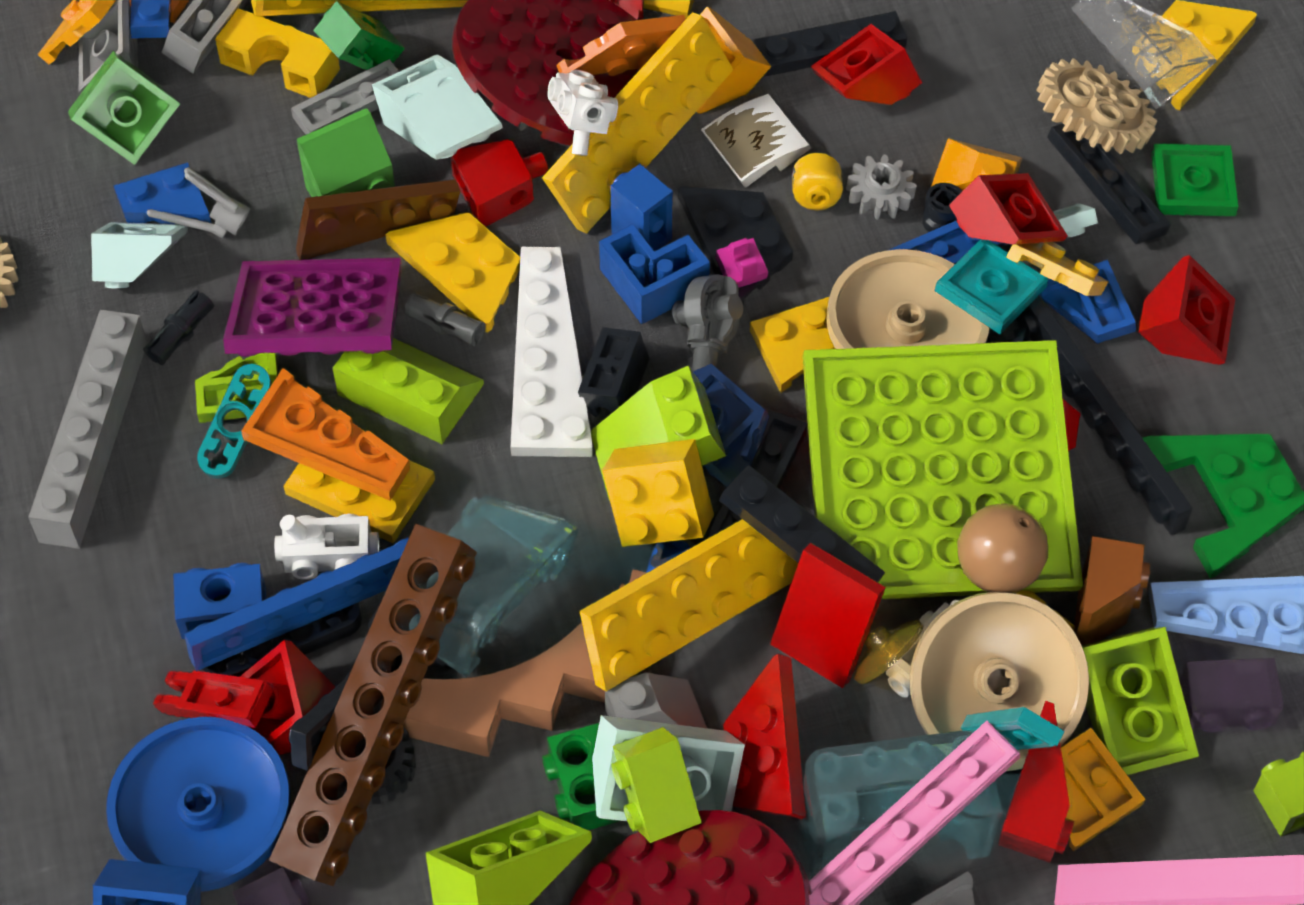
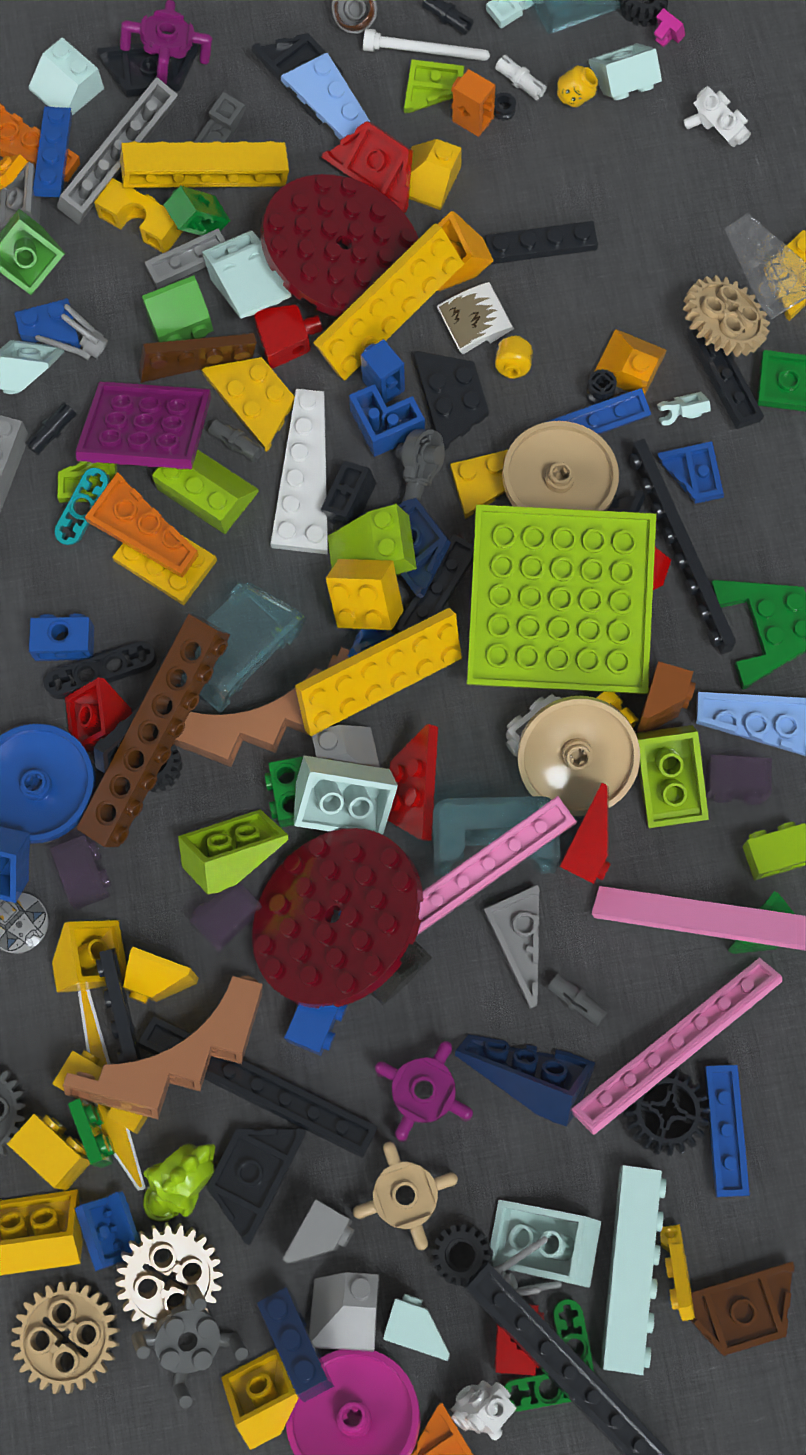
camera: 10 degrees right, 15 degrees up
(215, 696) = (52, 710): red hinge -> none
(293, 607) = (111, 650): blue plate -> none
(323, 544) = (132, 604): white brick -> none
(582, 106) = (345, 292): white brick -> none
(624, 46) = (383, 244): orange wing -> none
(655, 785) = (333, 810): lime brick -> none
(742, 262) = (449, 419): dark pink tile -> none
(787, 522) = (456, 641): black plate -> none
(827, 615) = (467, 697): red tile -> none
(869, 68) = (563, 269): red slope -> none
(881, 187) = (559, 365): light grey gear -> none
(886, 649) = (506, 723): clear yellow dish -> none
(991, 285) = (623, 456): teal tile -> none
(1002, 548) = (592, 666): medium nougat piece -> none
(1006, 211) = (643, 403): red slope -> none
(1018, 726) = (575, 802): teal tile -> none
(1053, 264) = (675, 446): yellow wing -> none
(1096, 788) = (631, 835): light orange wing -> none
(1189, 314) = (764, 489): red slope -> none

